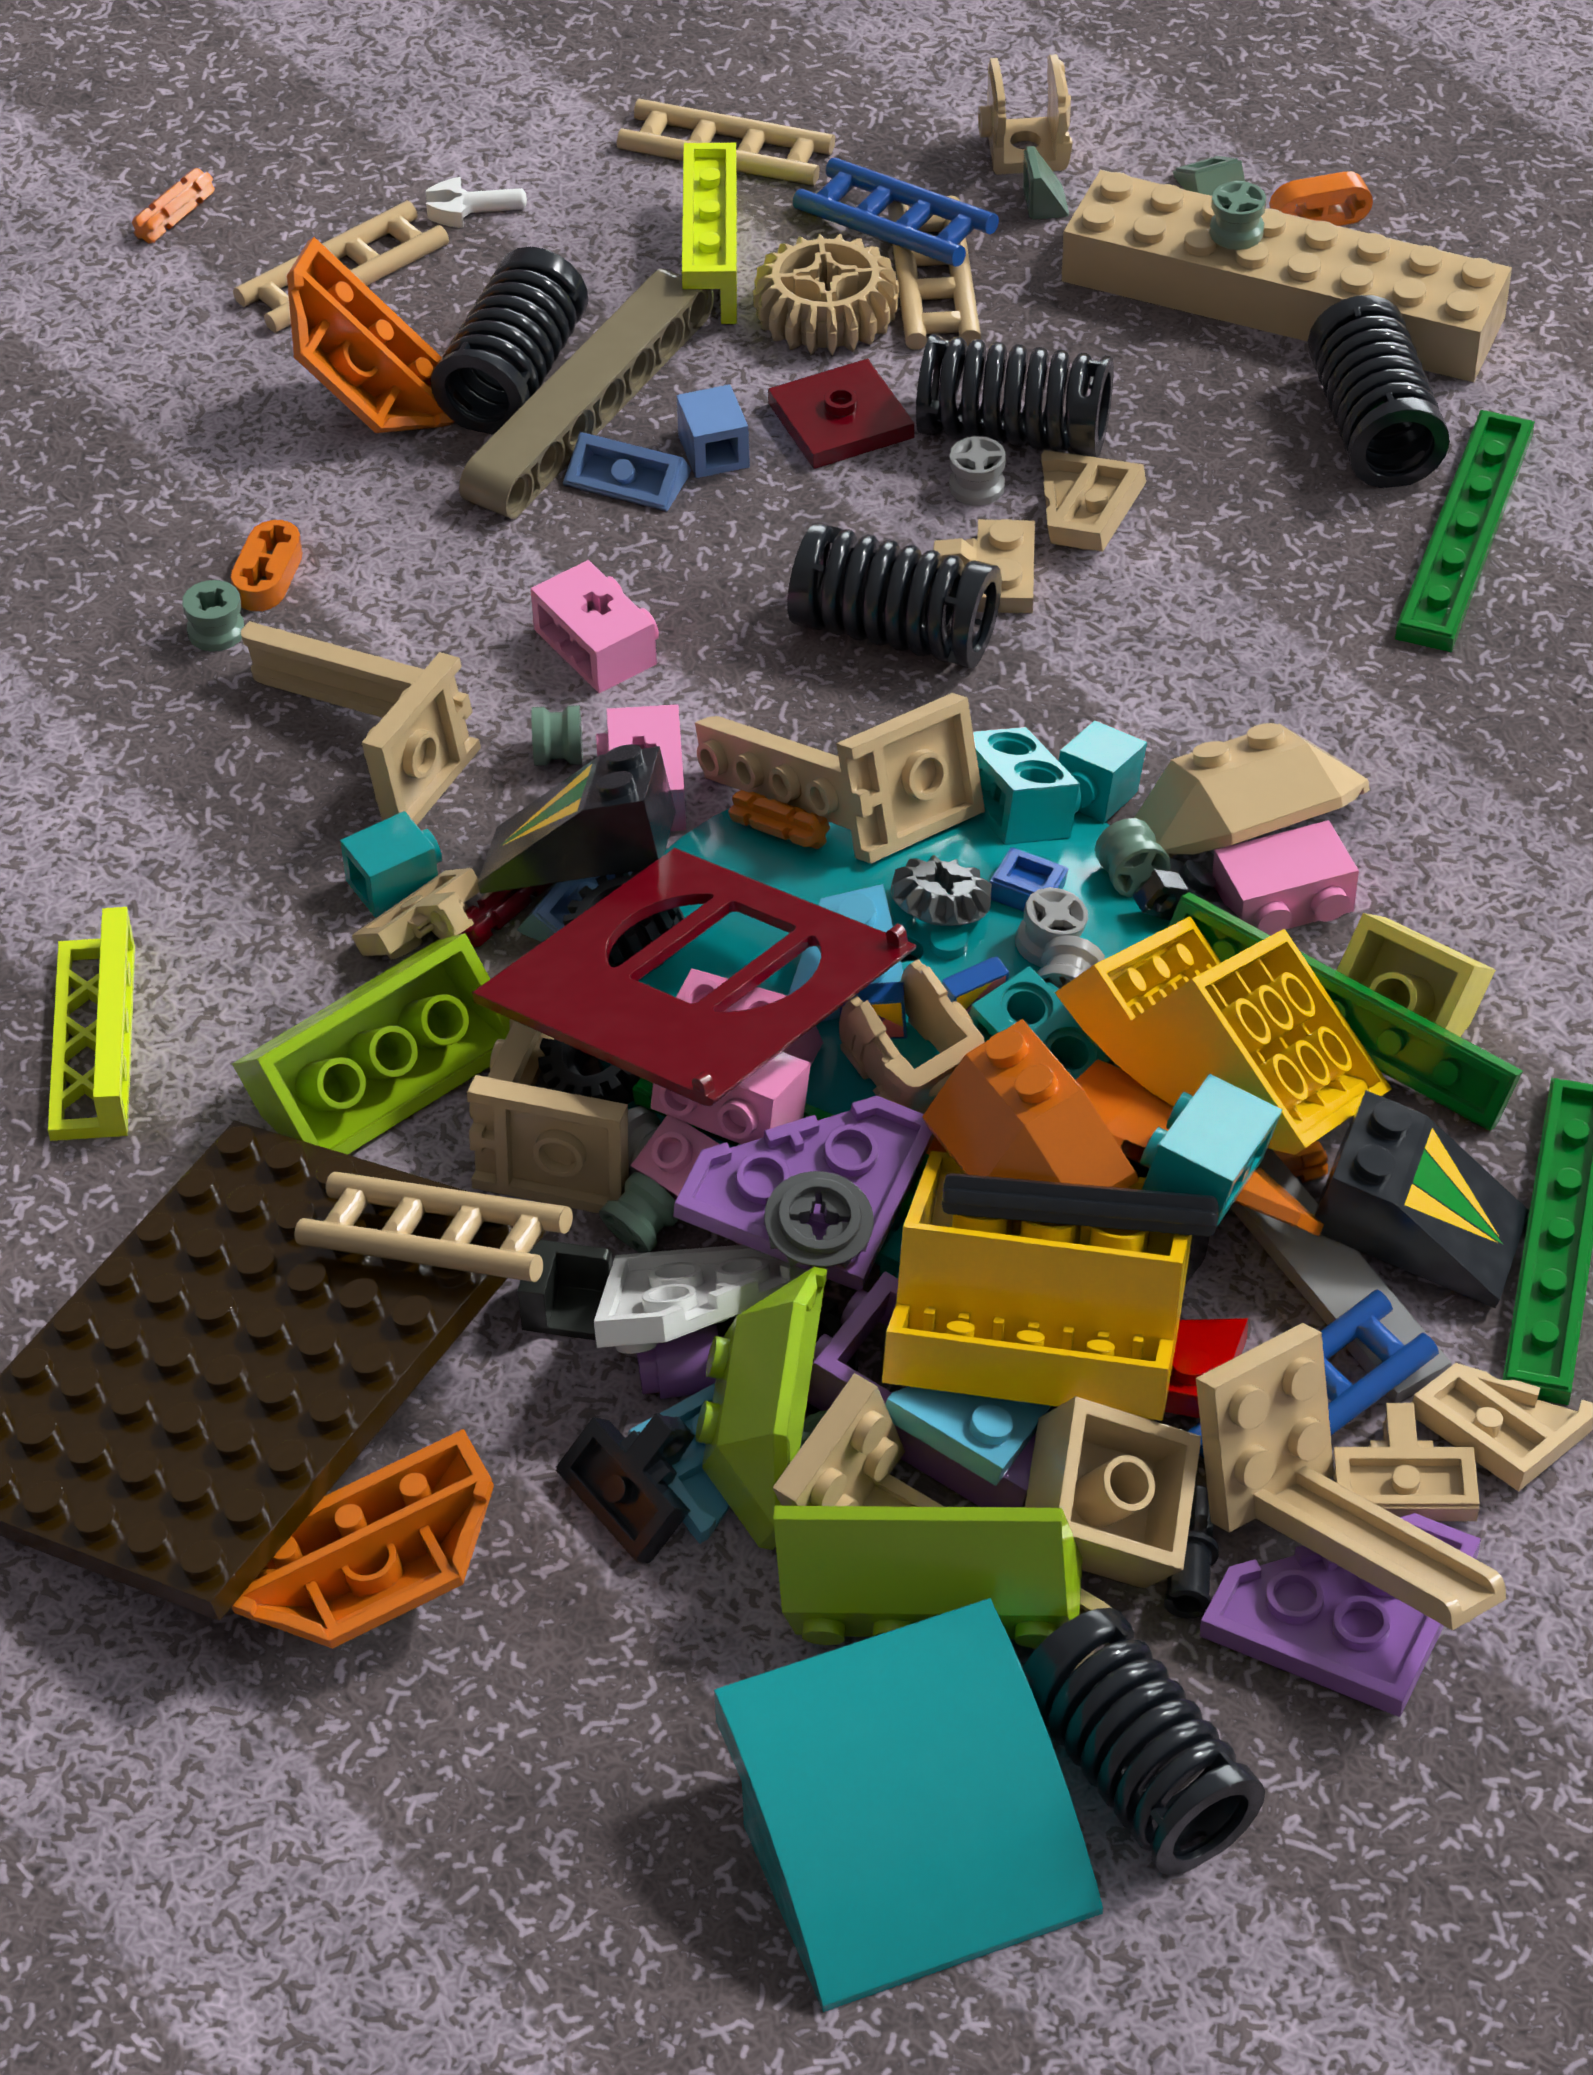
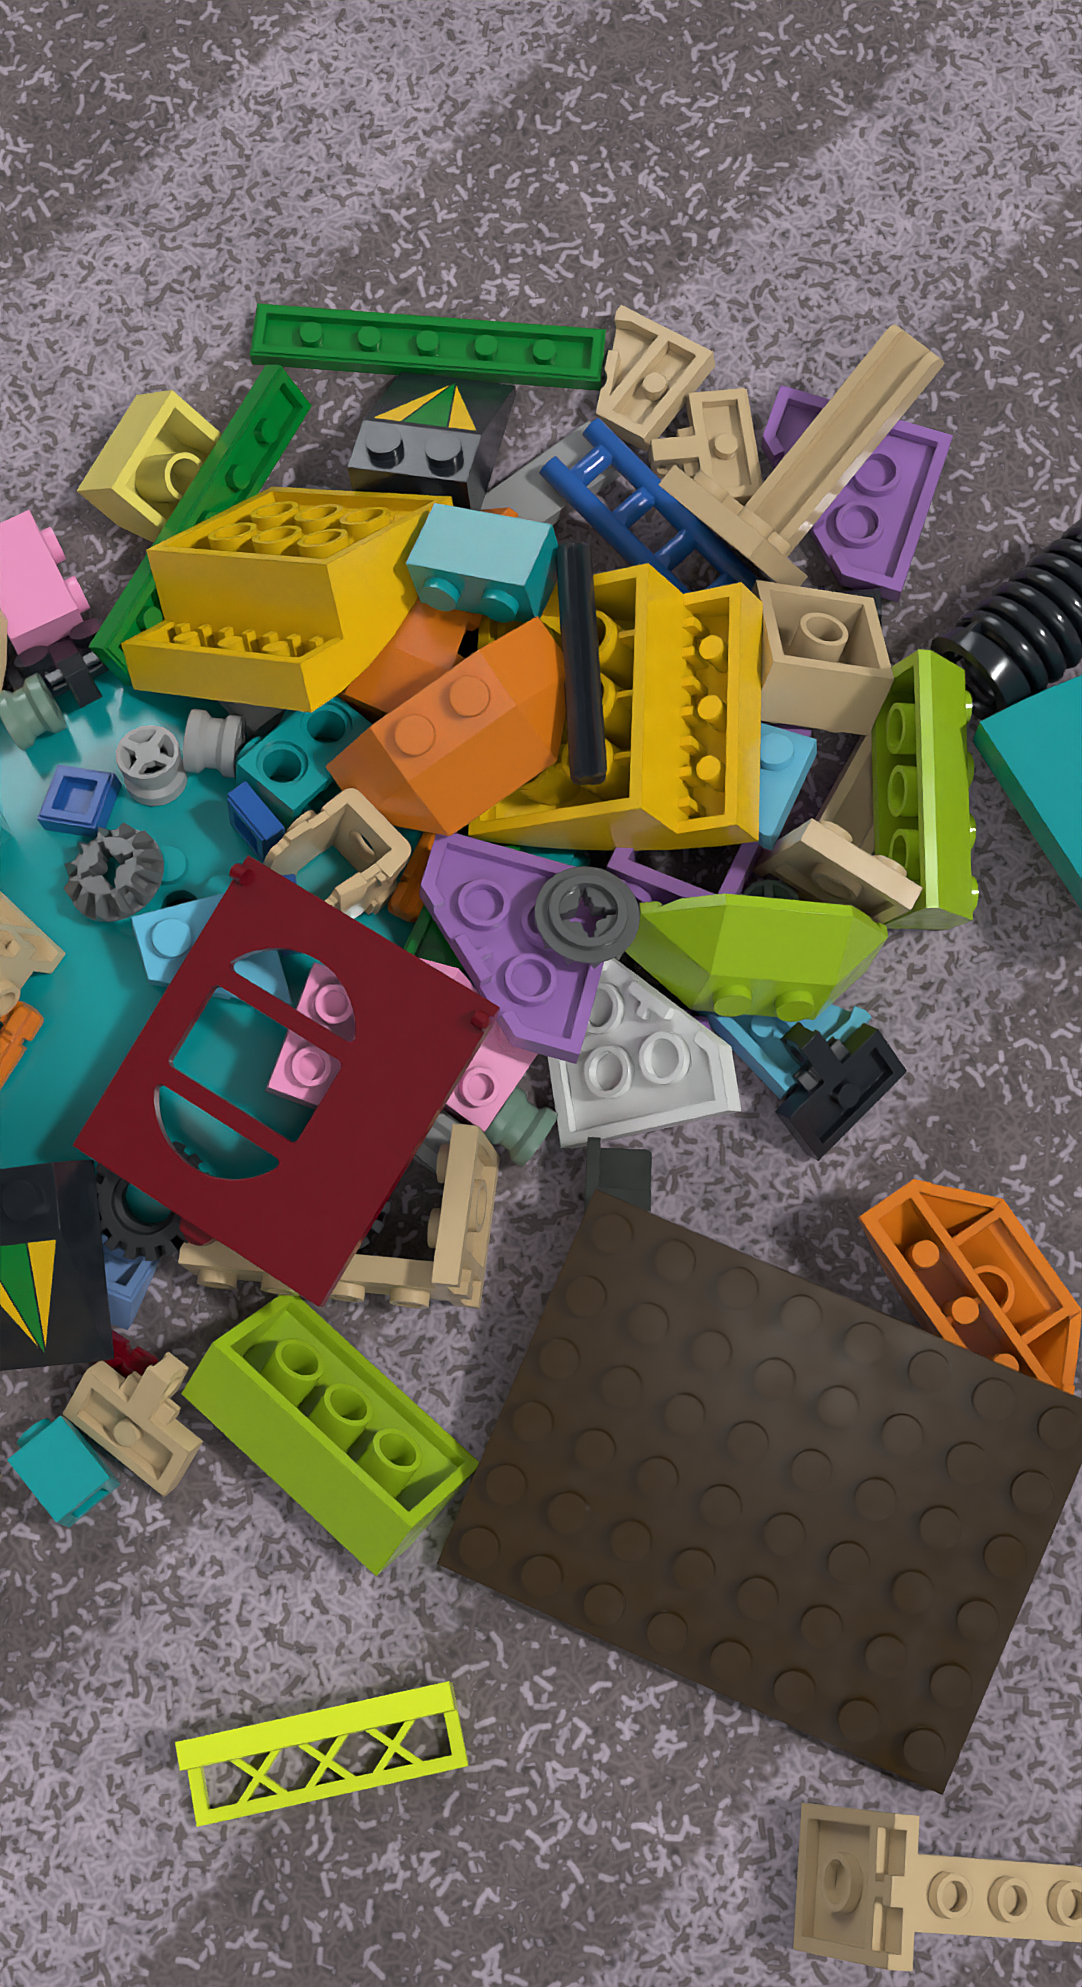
camera: 95 degrees left, 25 degrees up
(454, 1247) = (652, 1326): tan bar -> none

